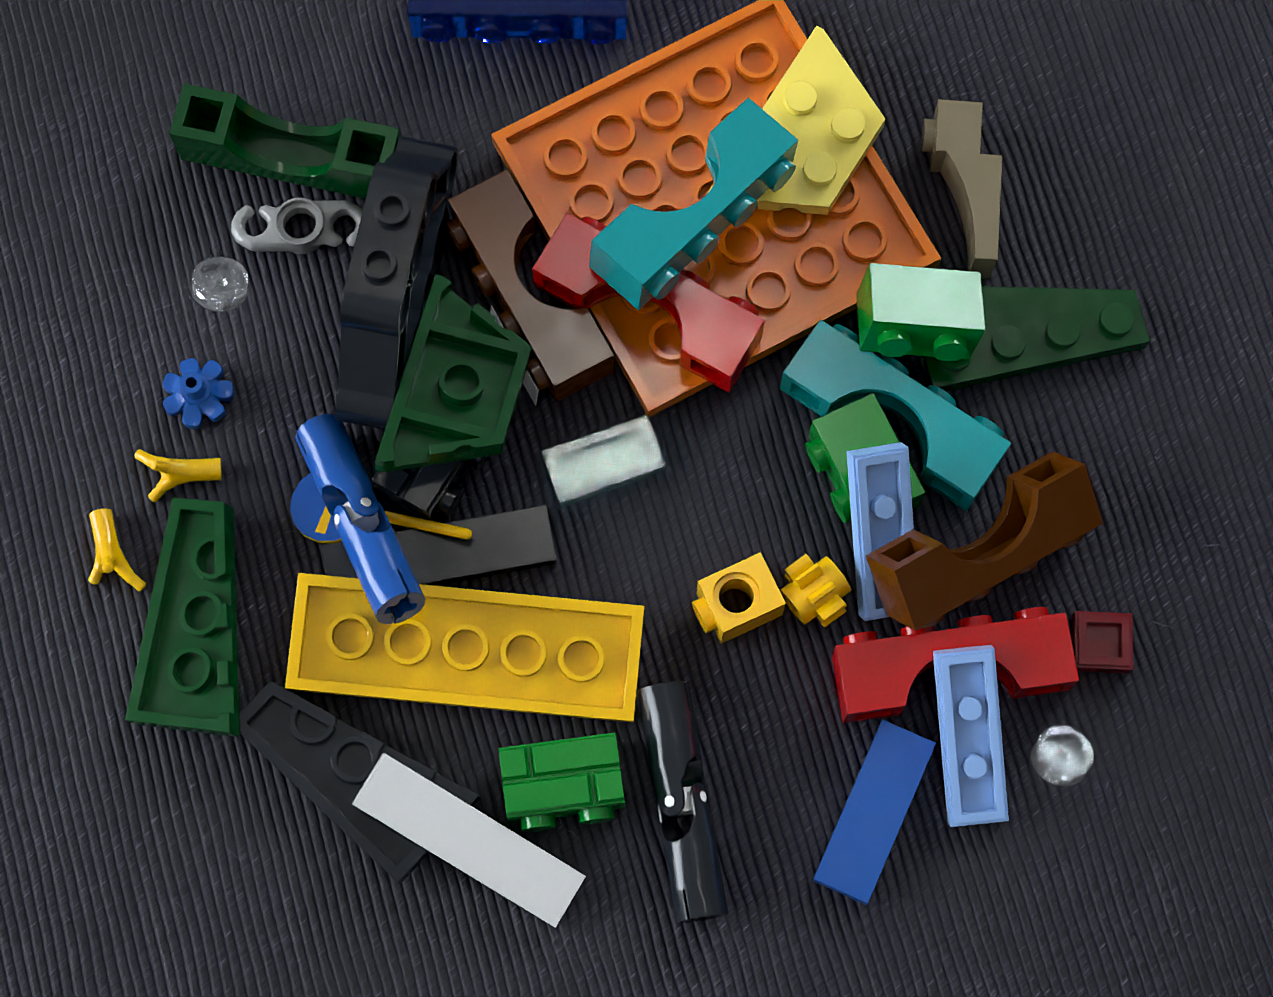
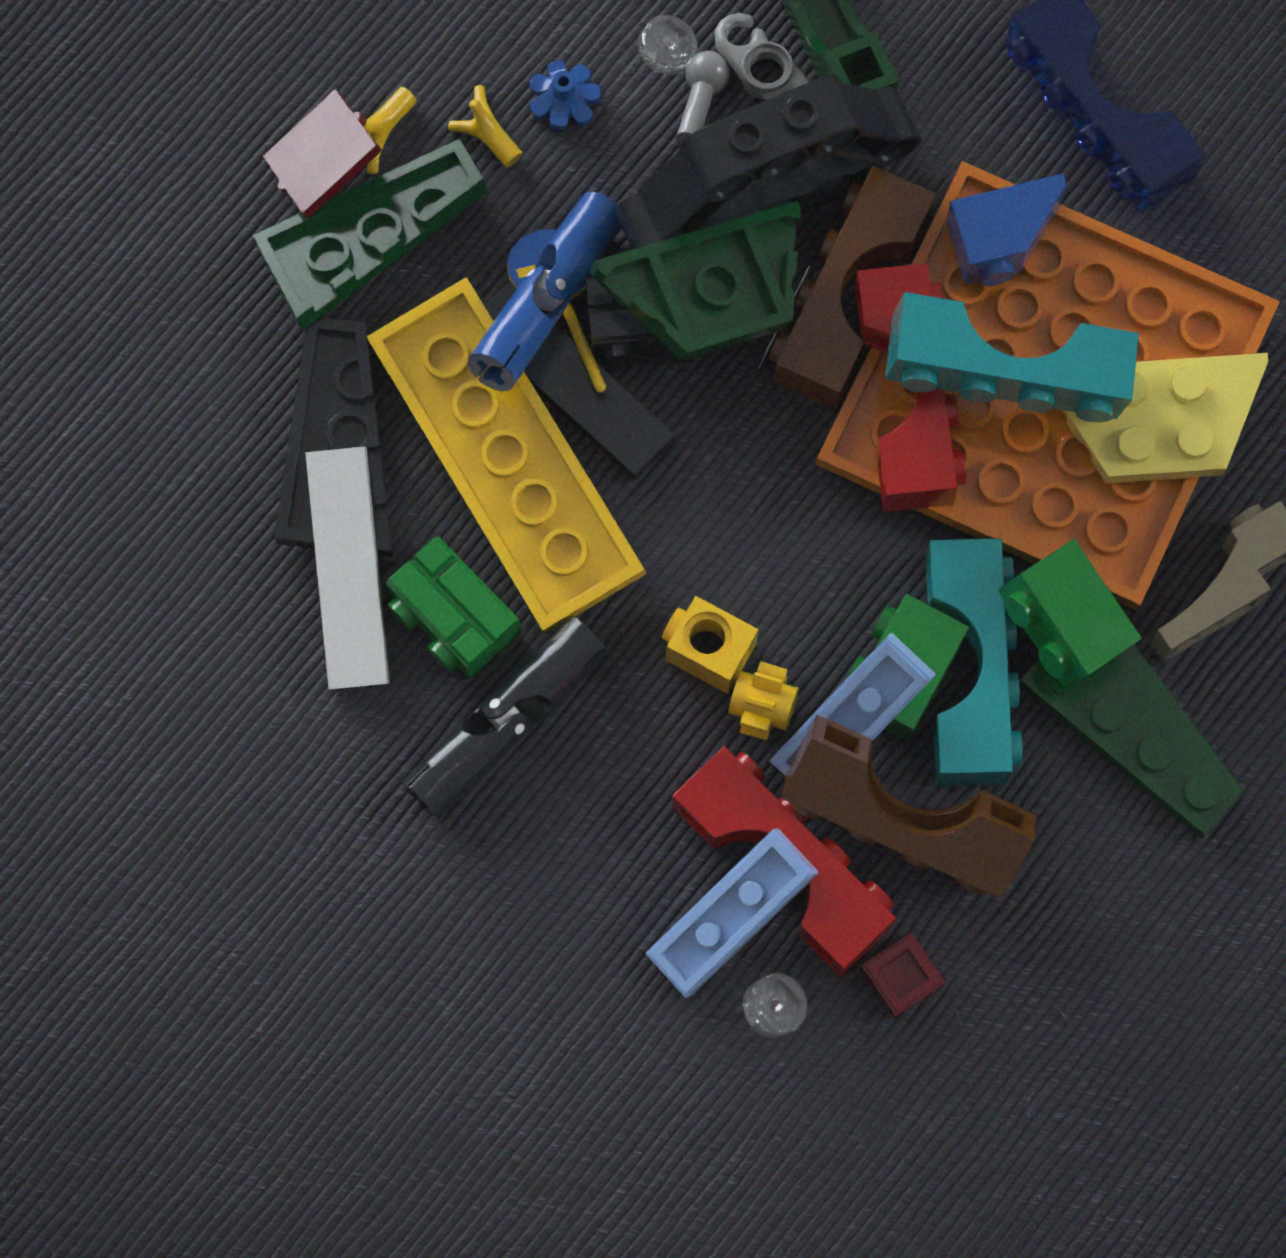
camera: 55 degrees right, 0 degrees up
(100, 614) = (322, 153): none -> piece
(267, 275) = (706, 76): none -> light grey bar
(575, 142) = (1001, 228): none -> blue slope
(603, 461) = (750, 455): clear light blue tile -> none
(874, 812) = (613, 882): blue tile -> none

